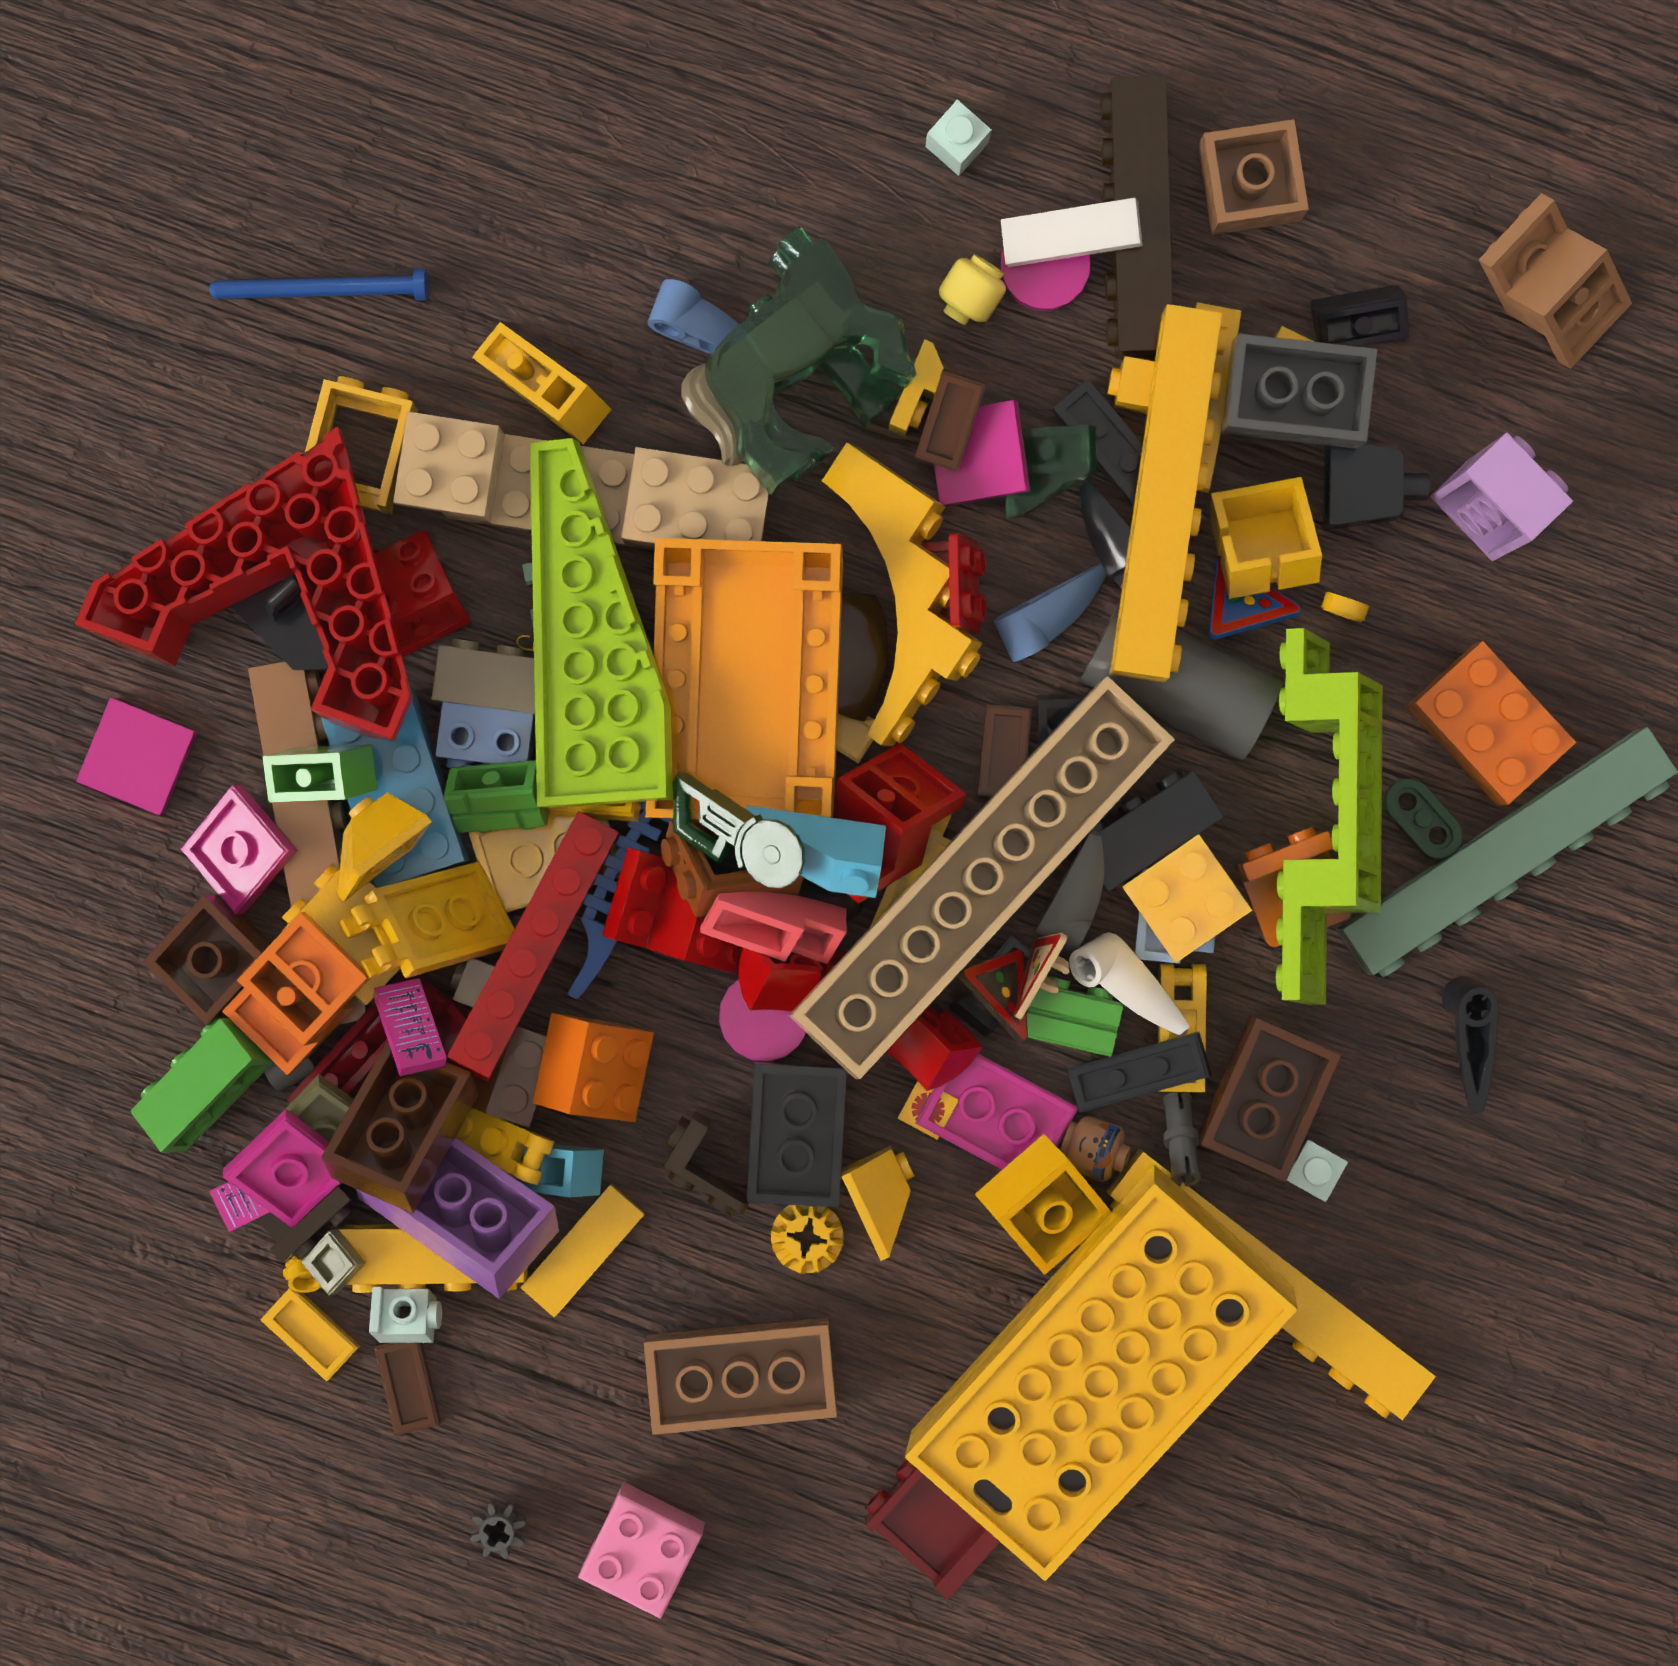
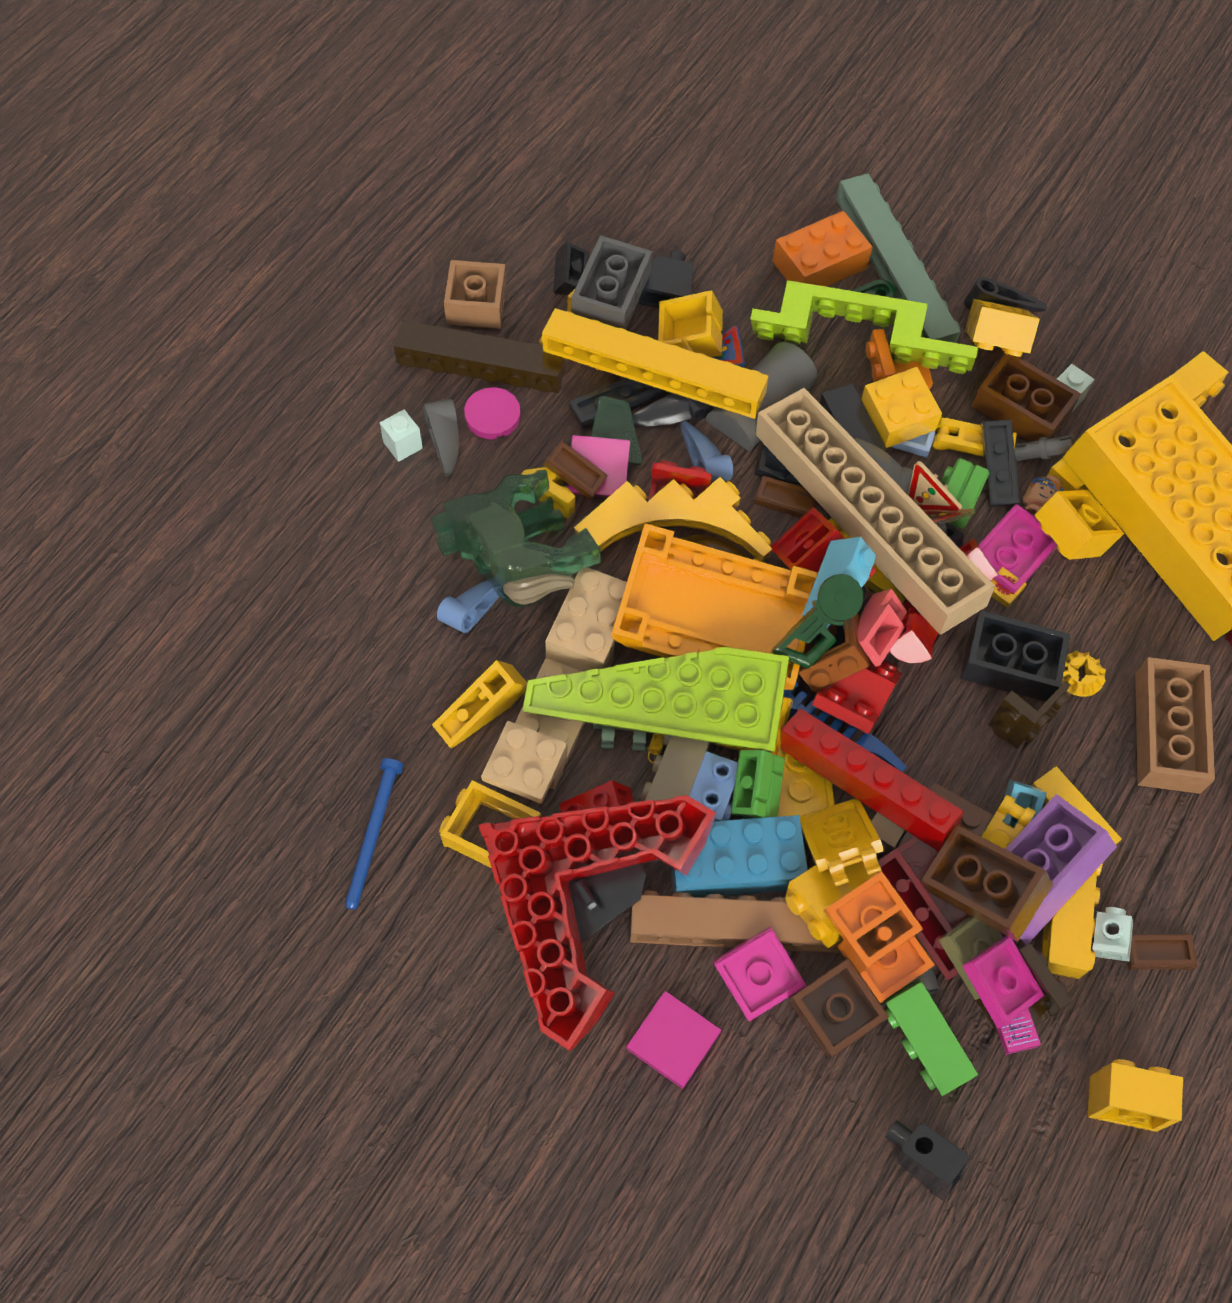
camera: 80 degrees left, 25 degrees down
(49, 1124) = (939, 1167): none -> black torso
(185, 1359) = (1135, 1096): none -> yellow brick
(299, 1277) = (1078, 1000): yellow plate -> none
(310, 1333) = (1116, 1011): yellow tile -> none
(320, 773) = (723, 884): bright green brick -> none
(333, 1262) = (1073, 968): tile -> none
(377, 839) = (783, 849): yellow slope -> none
(409, 1027) = (917, 859): dark pink tile -> none
(593, 1068) = (956, 764): orange brick -> none
(757, 1033) = (937, 674): dark pink tile -> none
(880, 1195) = (1069, 615): yellow slope -> none
(972, 290) = (496, 448): light yellow head -> none
(987, 201) = (444, 433): none -> dark grey piece
(1071, 232) = (479, 385): white tile -> none
(1119, 970) = (947, 451): white piece -> none
(1131, 384) = (580, 379): yellow brick -> none
(1345, 607) = (738, 307): yellow tile -> none
(1375, 1035) = (1001, 326): none -> yellow brick
(1502, 496) = (700, 202): lavender brick -> none
(1555, 280) = (578, 172): medium nougat bracket -> none

